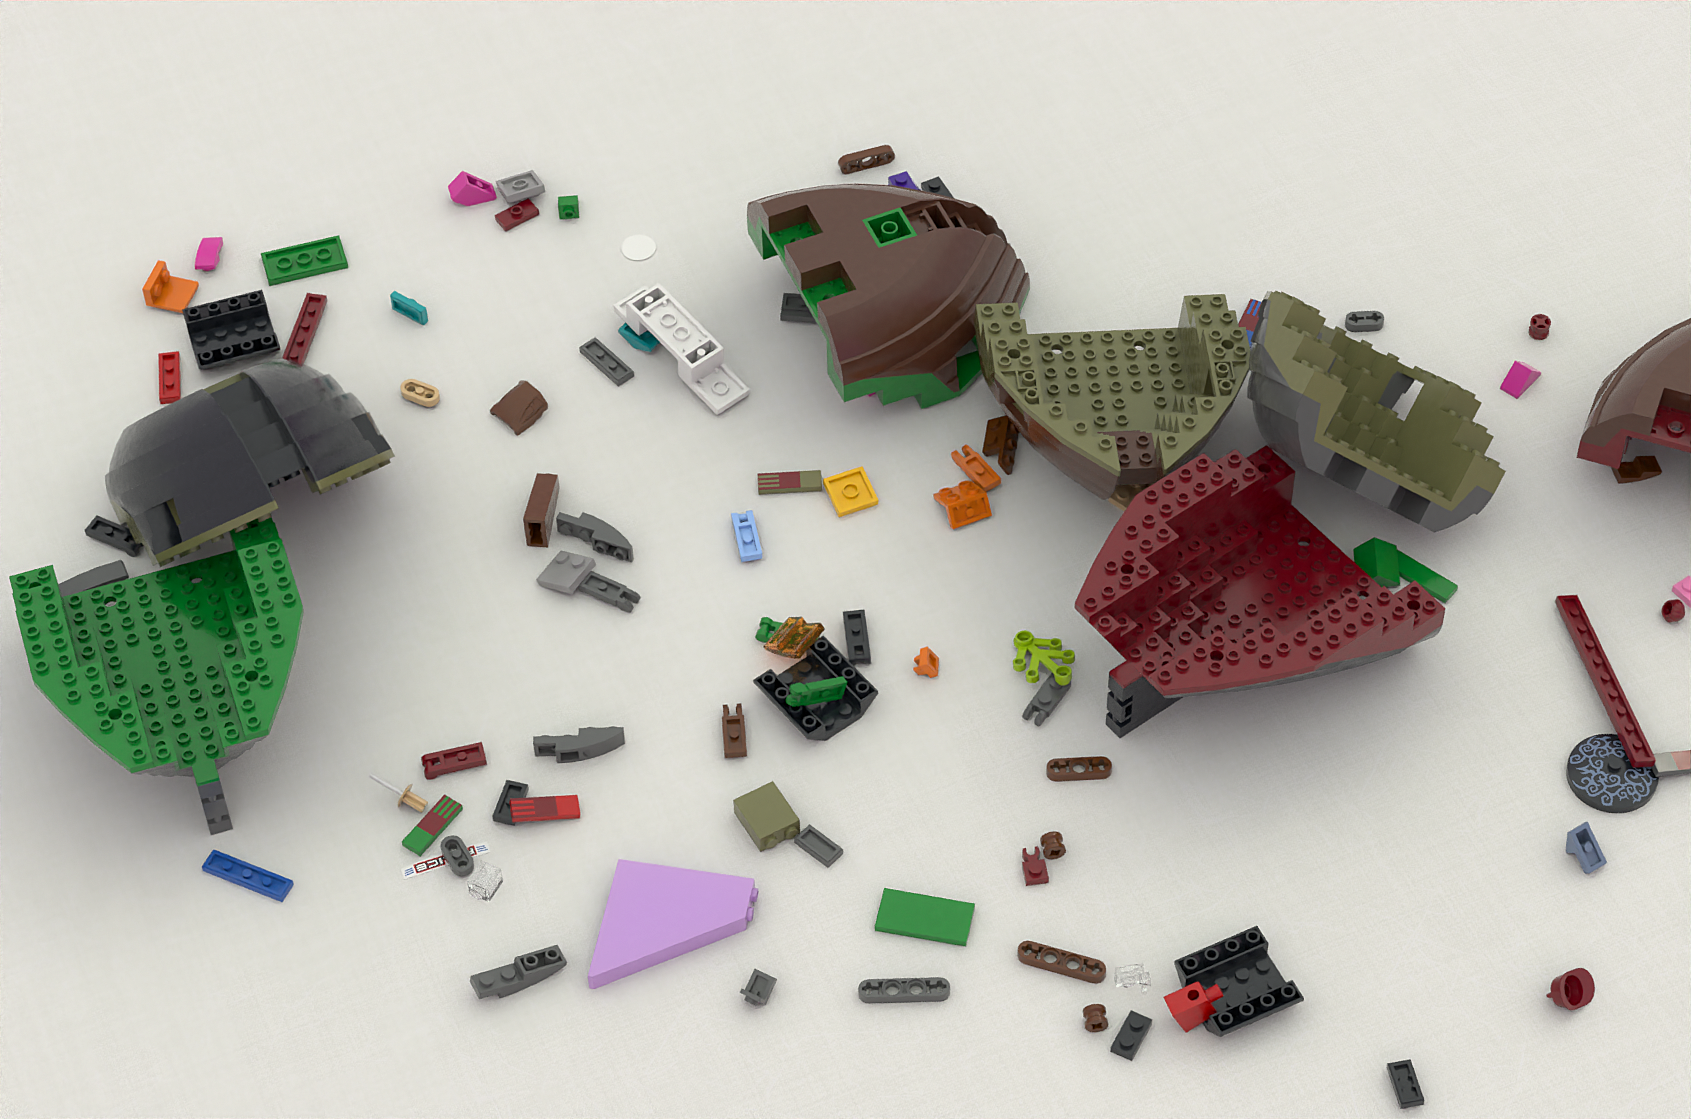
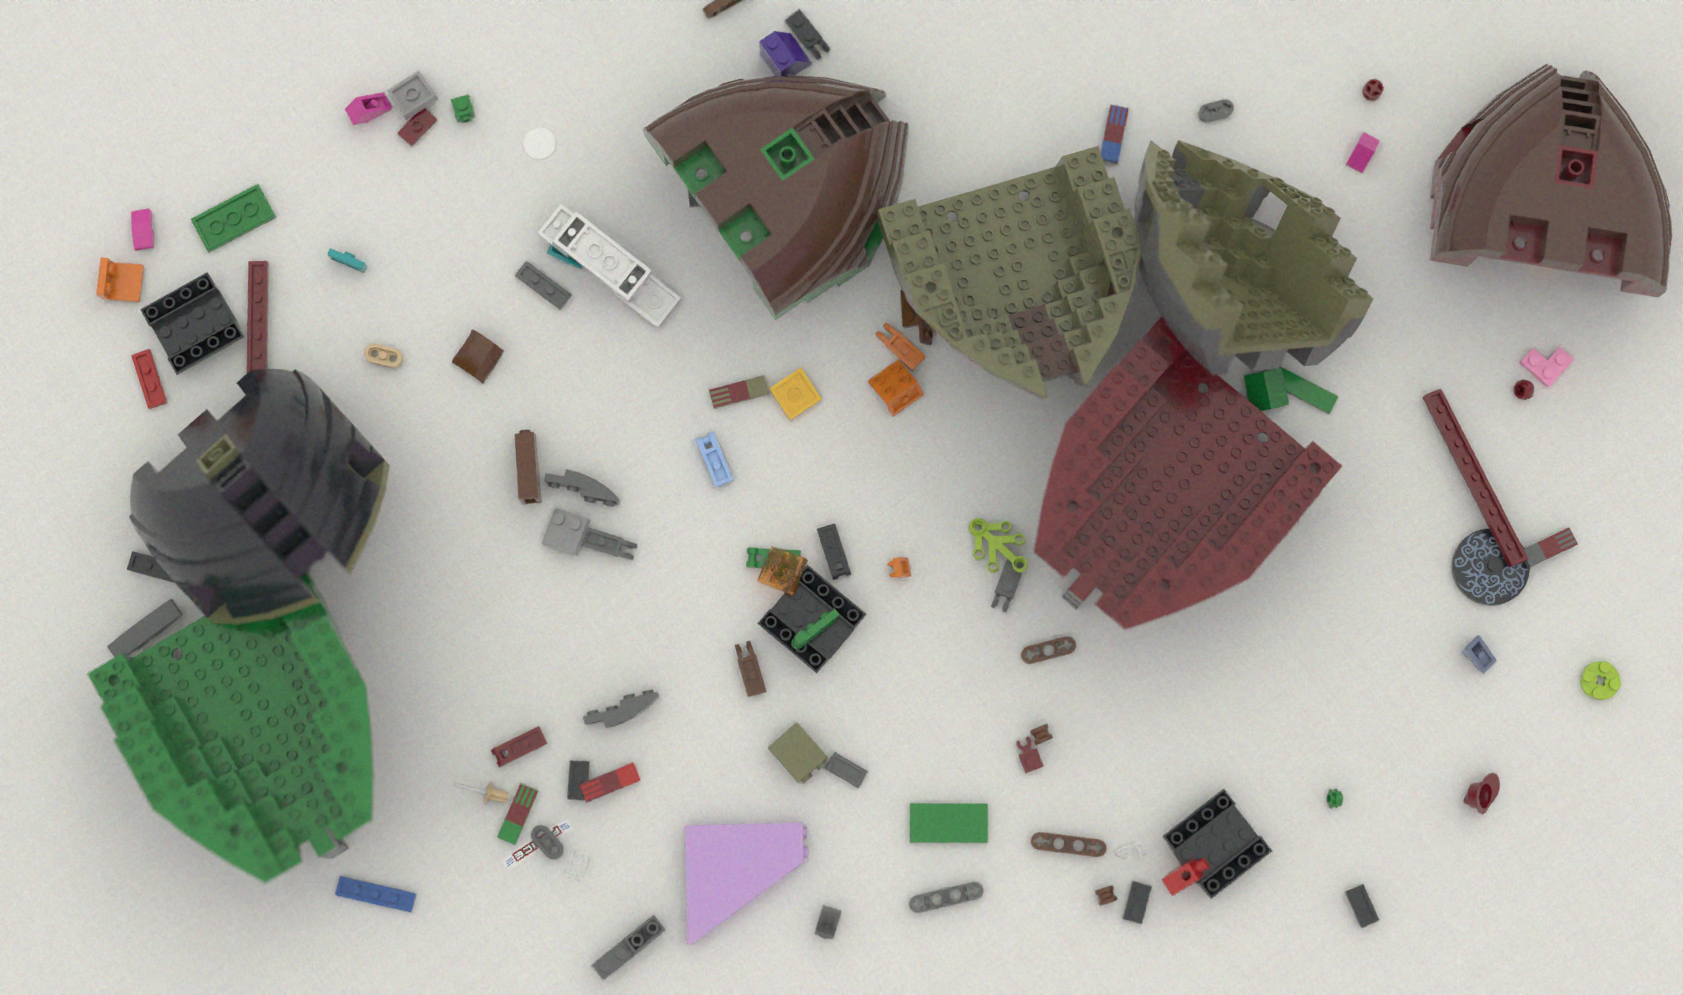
camera: 15 degrees left, 30 degrees up
(1389, 966) = (1334, 798): none -> green plate

